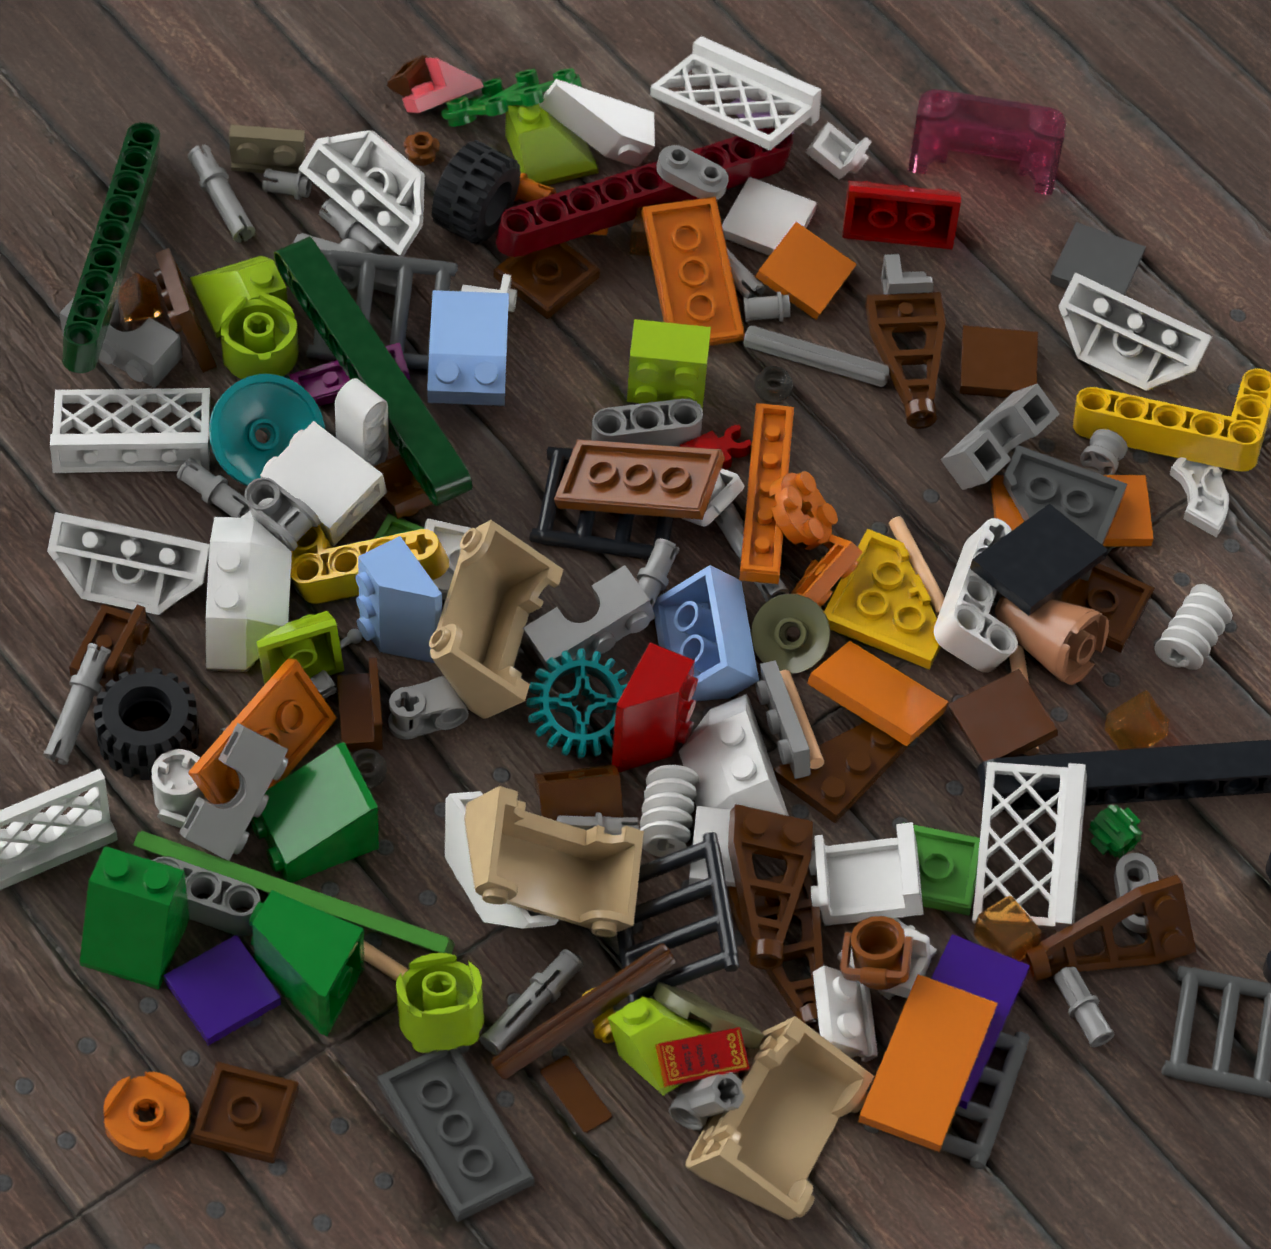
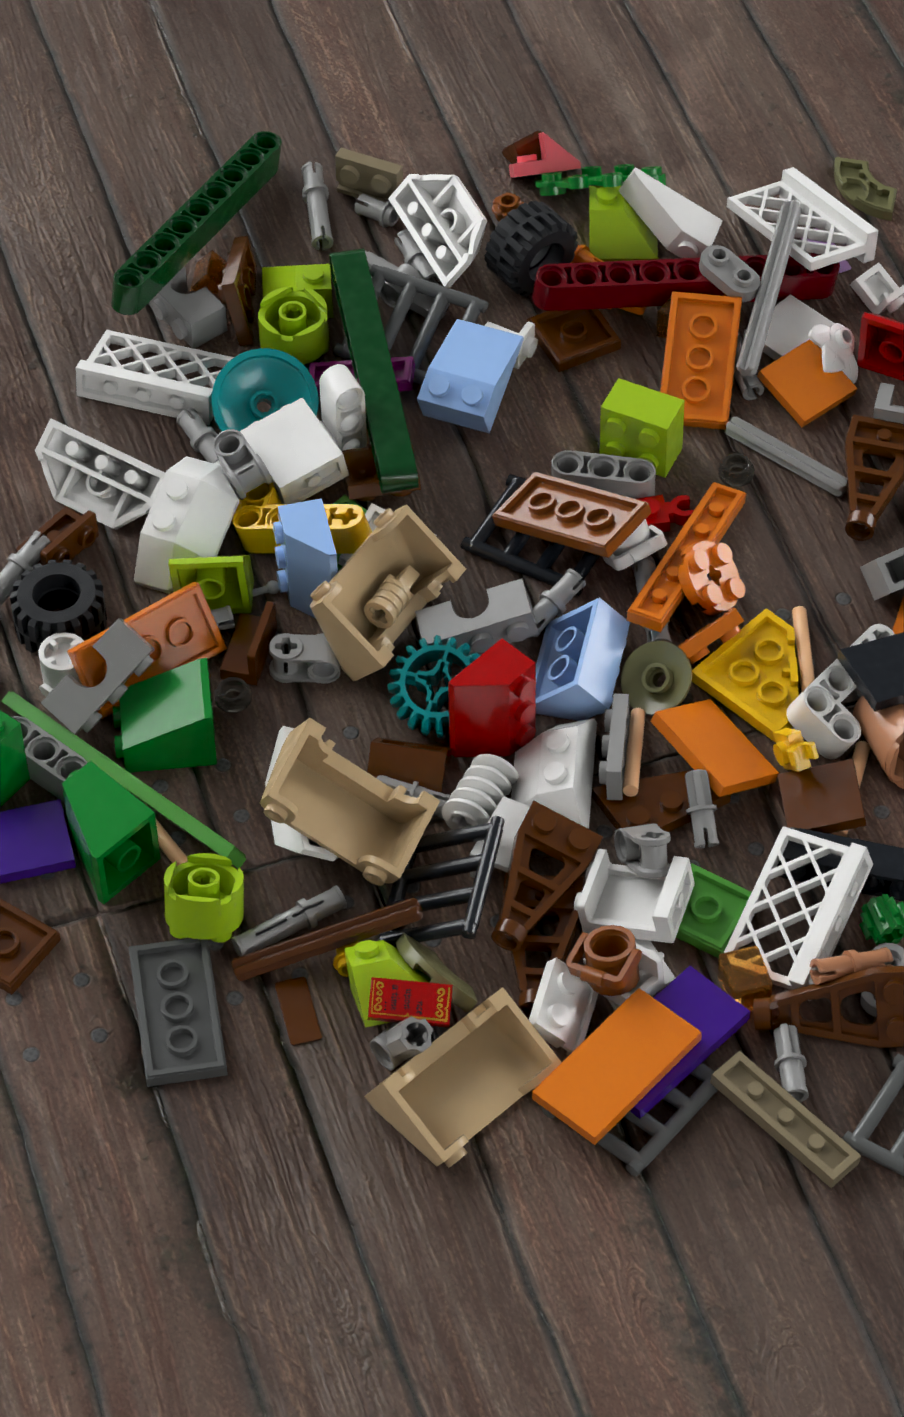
camera: 25 degrees right, 5 degrees down
(497, 620) = (391, 598): none -> tan hinge
(737, 179) = (769, 289): none -> light grey axle
(767, 307) = (758, 405): light grey pin -> none
(770, 41) = (862, 189): none -> olive tile
(821, 220) = (837, 349): none -> white plate
(859, 824) = (643, 849): none -> light grey piece
(893, 763) = (701, 808): none -> light grey axle
(957, 676) = (792, 750): none -> yellow plate
(1104, 1067) = (785, 1119): none -> dark tan plate
(1108, 889) = (848, 963): none -> nougat pin

